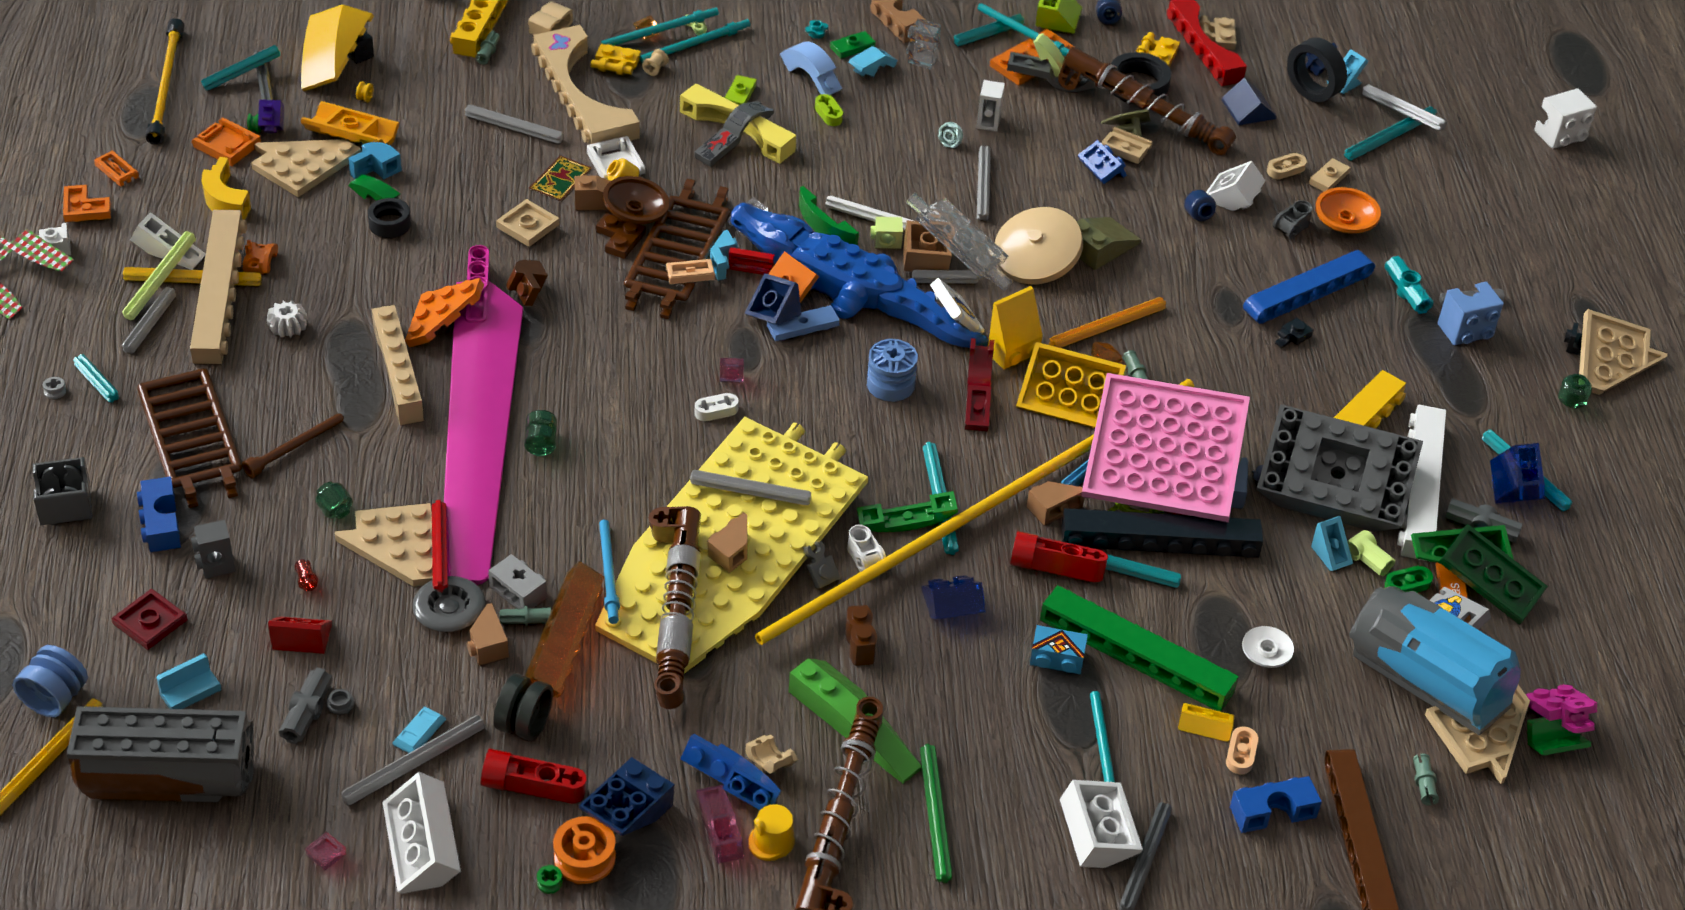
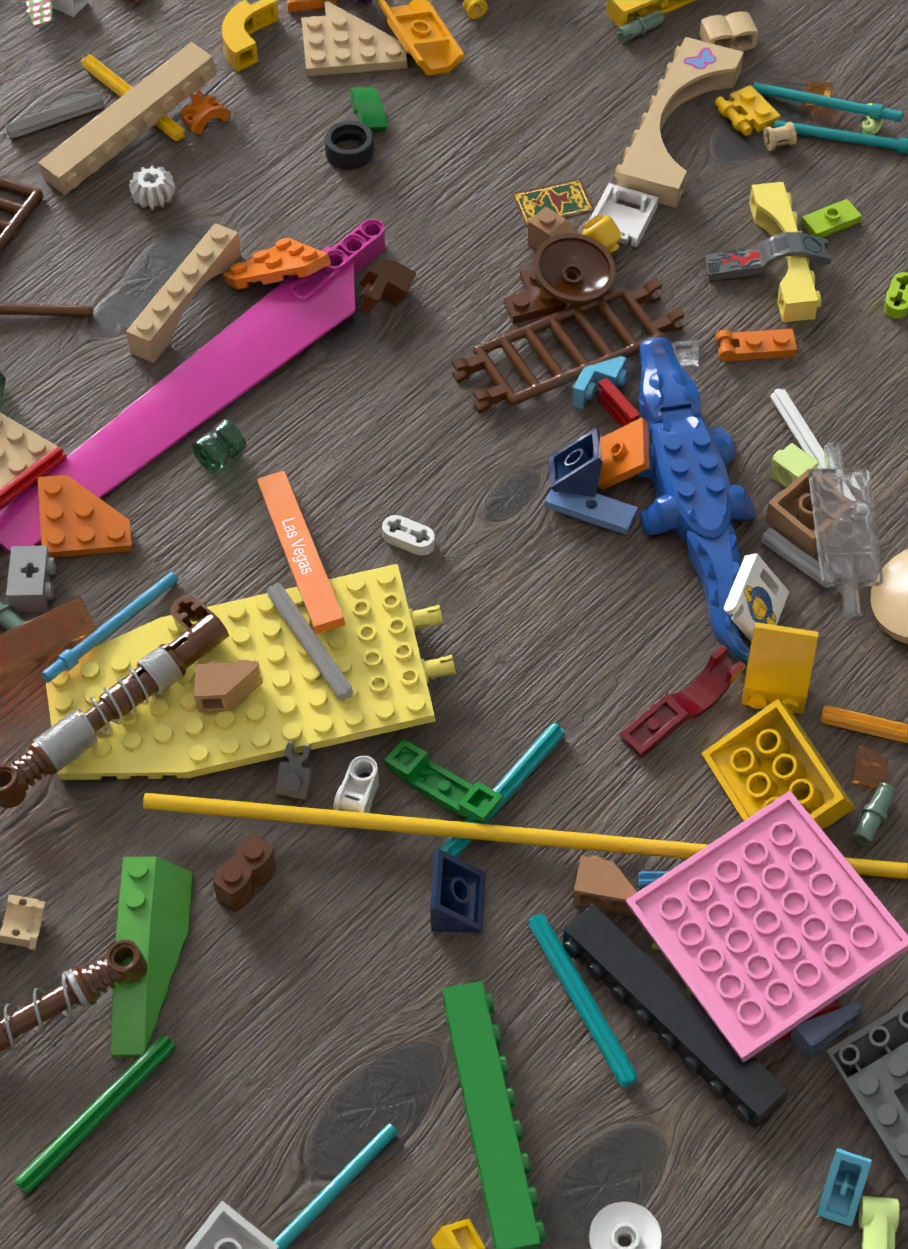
camera: 50 degrees right, 10 degrees up
(159, 238) = (140, 45): white slope -> none
(159, 275) = (100, 78): yellowish green axle -> none
(377, 158) = (404, 77): dark azure brick -> none
(502, 531) = (78, 521): none -> orange plate
(514, 124) = (572, 120): light grey axle -> none
(527, 222) = (462, 228): tan plate -> none
(676, 449) = (300, 553): none -> tile
(690, 271) = (539, 379): light nougat tile -> none
(731, 369) = (463, 507): clear pink plate -> none
(783, 183) = (756, 344): none -> orange plate
(821, 222) = (744, 434): green slope -> none
(892, 370) = (608, 620): medium blue wheel -> none
(954, 598) = (377, 907): clear blue slope -> none
(982, 563) = (456, 895): none -> dark blue slope
(1058, 557) = (527, 950): red beam -> none
(1058, 649) = (409, 1050): dark azure brick -> none

